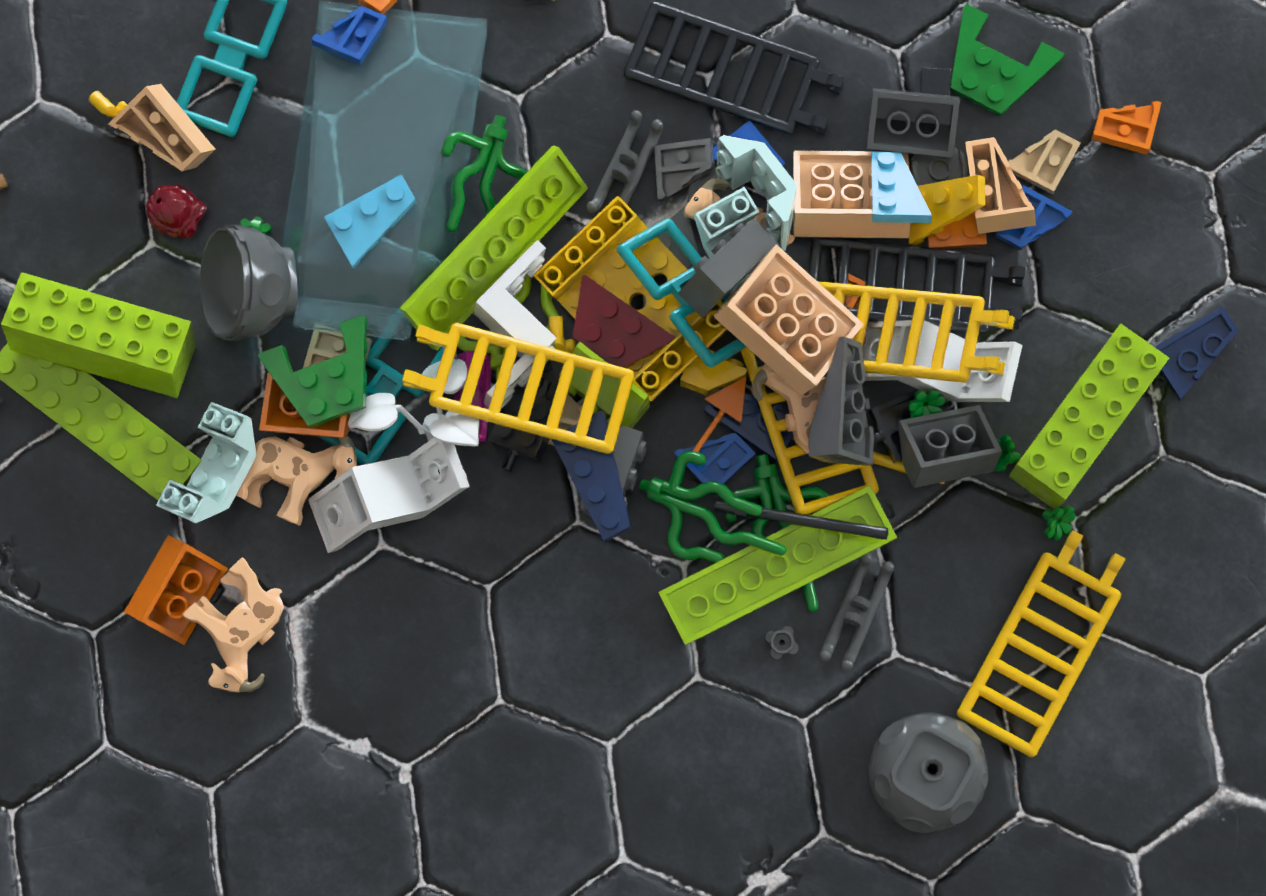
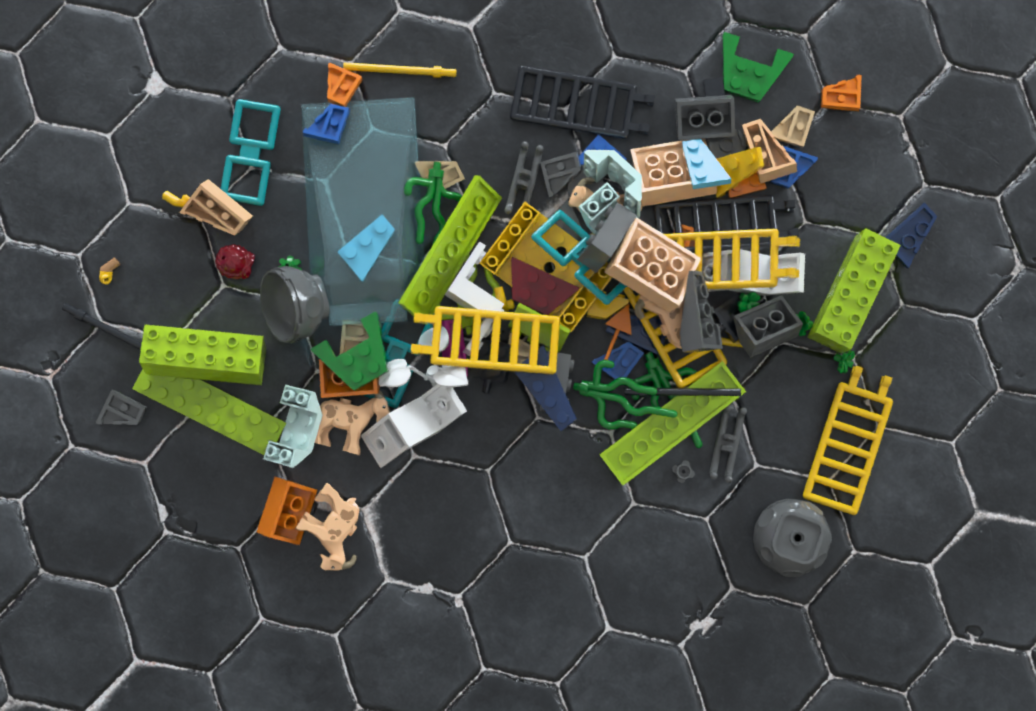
camera: 20 degrees left, 5 degrees up
(519, 139) = (452, 172): none -> tan wing

